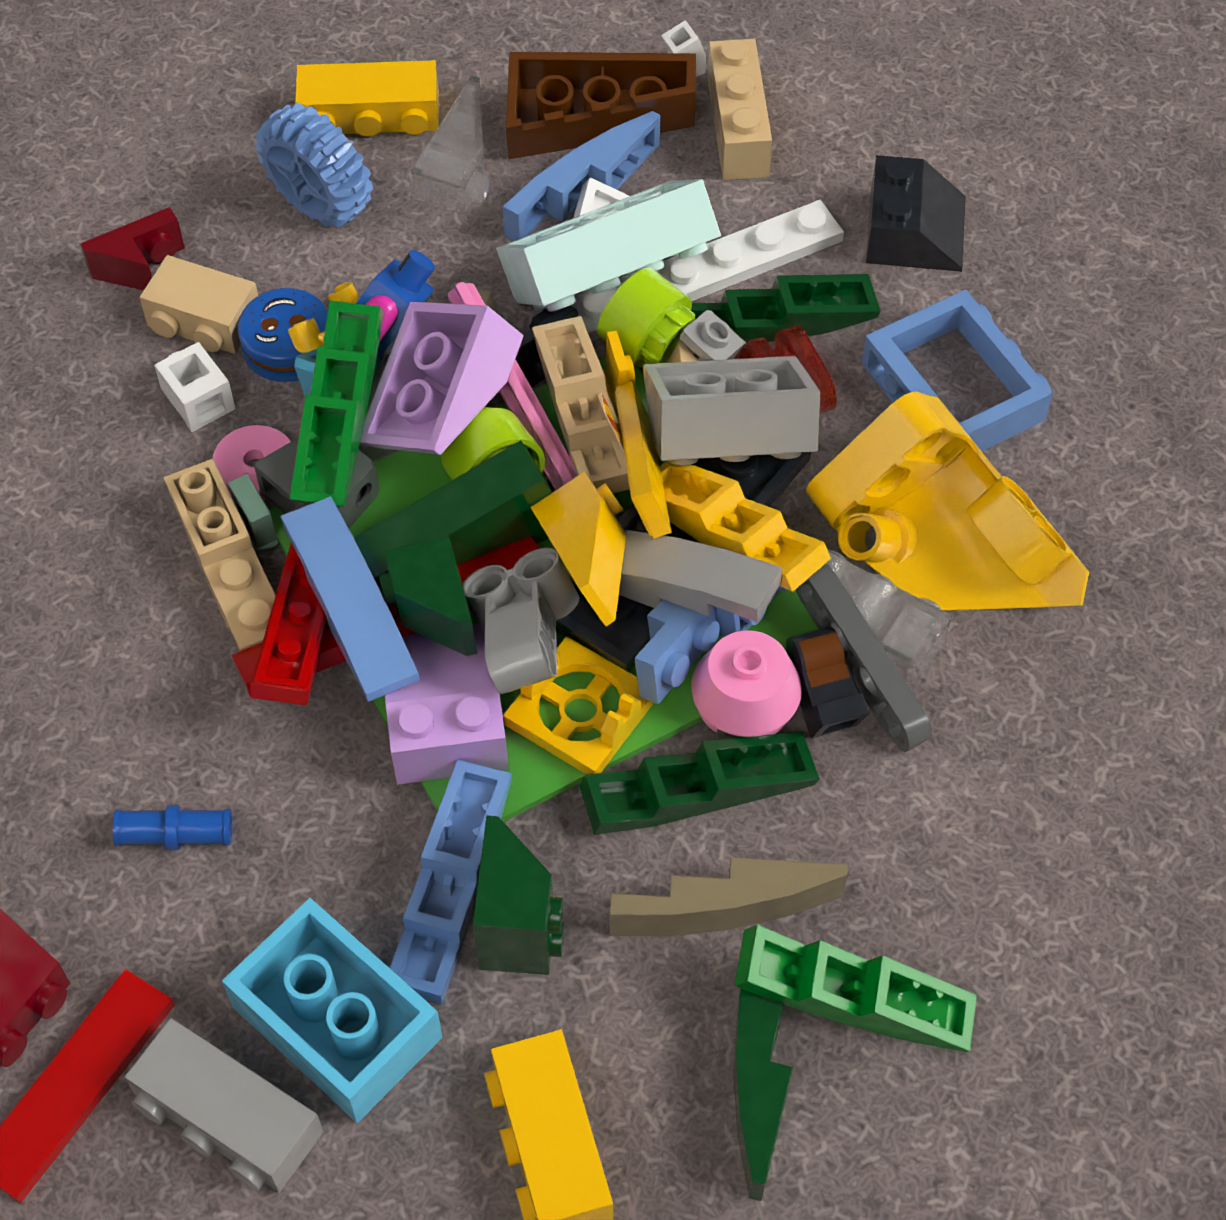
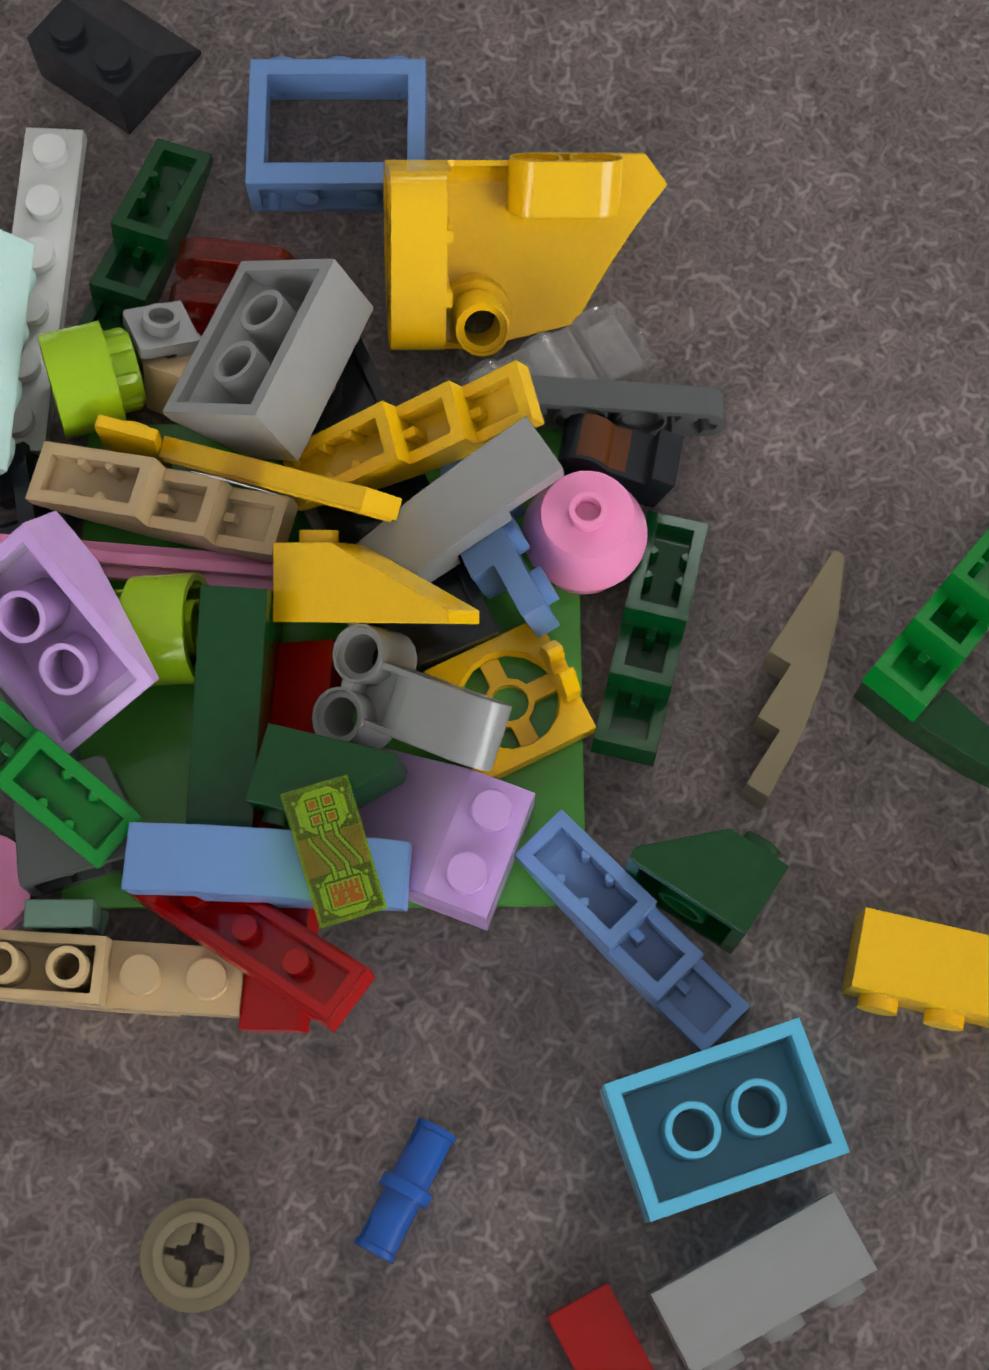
camera: 60 degrees left, 15 degrees up
(38, 711) = (176, 1227): none -> dark tan gear
(376, 618) = (333, 851): none -> clear neon green tile

